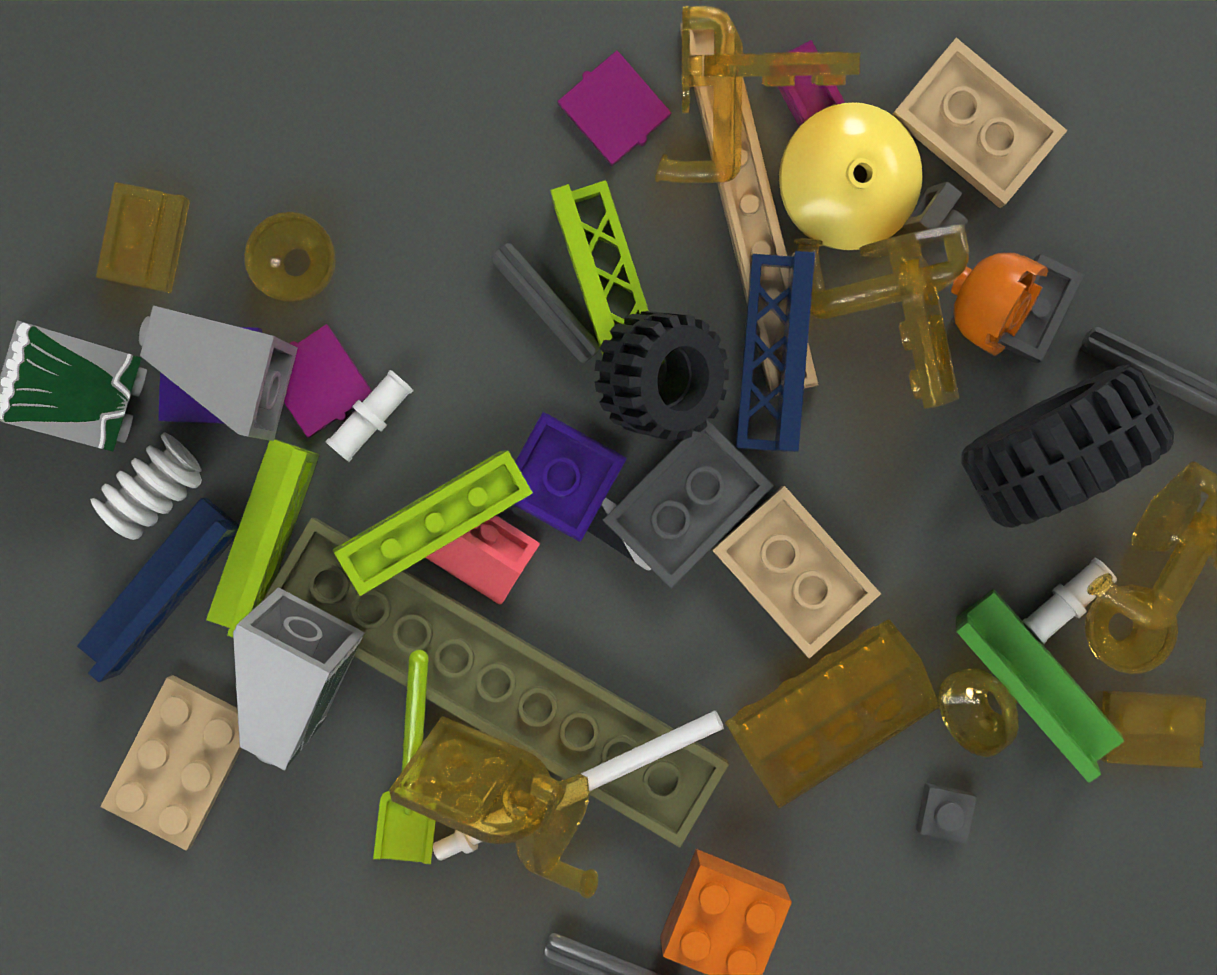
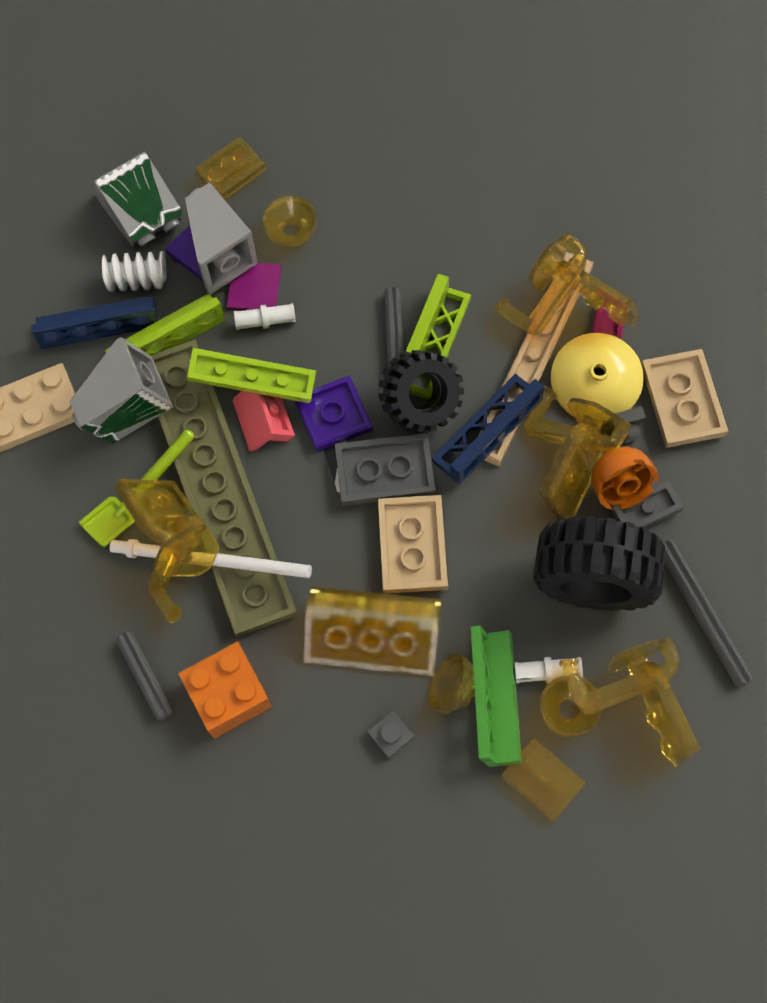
camera: 35 degrees right, 20 degrees down
(614, 108) = (503, 268): magenta piece -> none

